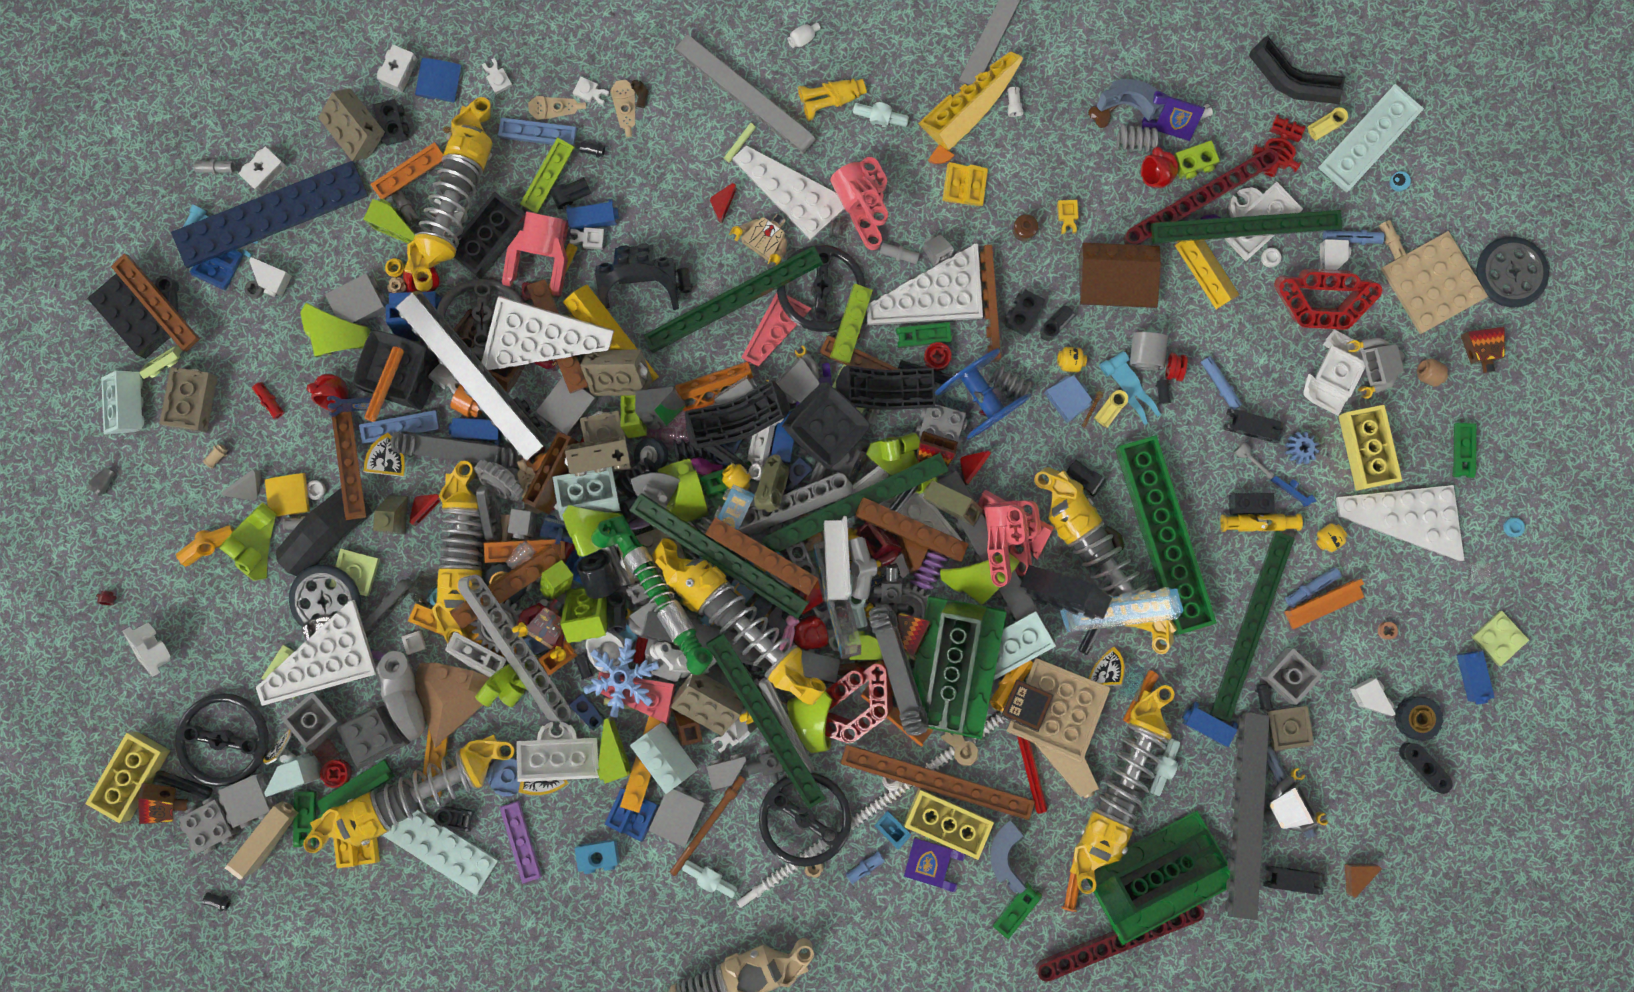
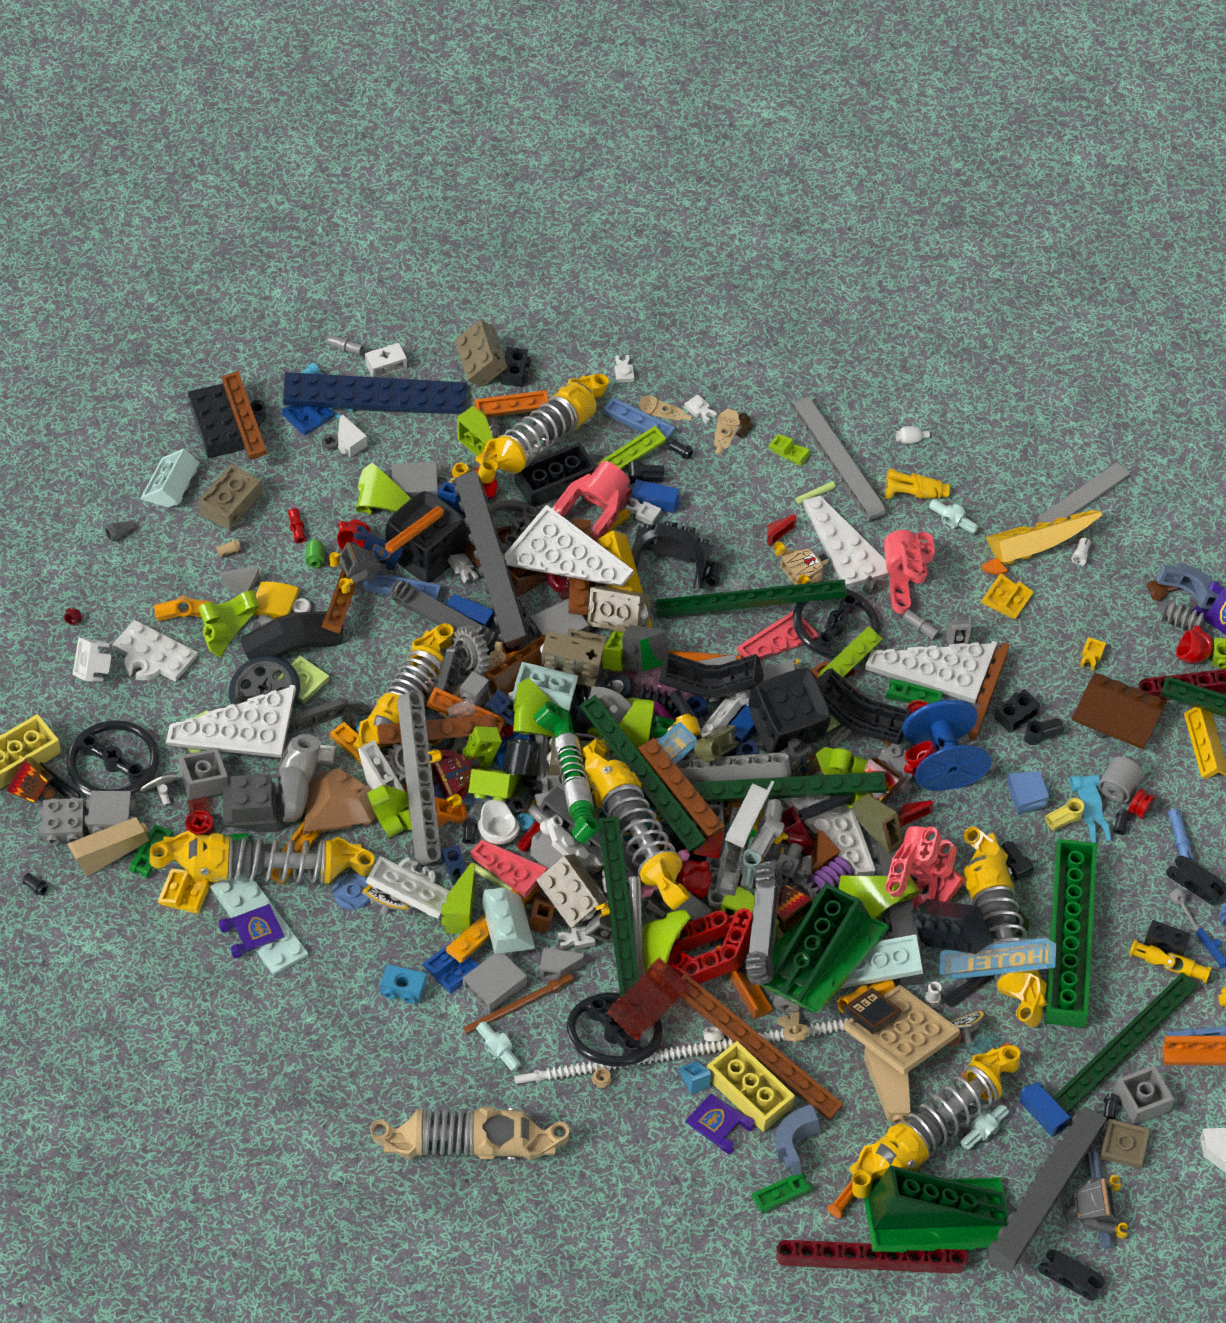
camera: 20 degrees right, 30 degrees down
(167, 359) = (217, 460): yellowish green plate -> none
(201, 604) = (152, 653): none -> white plate
(294, 773) = (165, 802): light aqua slope -> none
(300, 426) = (315, 554): none -> bright green brick
(348, 430) = (358, 565): none -> dark grey torso
(382, 459) = (377, 600): shield -> none
(391, 515) = (359, 647): olive slope -> none
(399, 76) = (540, 332): white brick -> none
(422, 507) = (391, 654): red slope -> none
(438, 79) = (571, 353): blue slope -> none
(439, 861) = (254, 929): none -> dark purple flag
(458, 818) = (291, 903): black piece -> none
(464, 404) = (472, 586): orange piece -> none
(520, 842) = (337, 948): medium lavender tile -> none
(614, 679) = (502, 844): light blue piece -> none
(694, 103) = (786, 448): none -> lime slope
(768, 765) = (603, 974): dark grey piece -> none
(826, 789) = (648, 999): none -> clear red plate
(865, 867) = (637, 1099): medium blue pin -> none
(911, 529) = (829, 827): dark orange plate -> none
(965, 418) = (917, 754): none -> red piece
(1025, 227) = (1047, 645): reddish brown head -> none
(1032, 775) = (852, 1081): red axle -> none
(1068, 654) = (933, 995): none -> white pin
(1071, 359) = (1044, 761): yellow head -> none
(1099, 395) = (1059, 803): clear orange hinge -> none
(1359, 876) = (1141, 1297): dark orange slope -> none

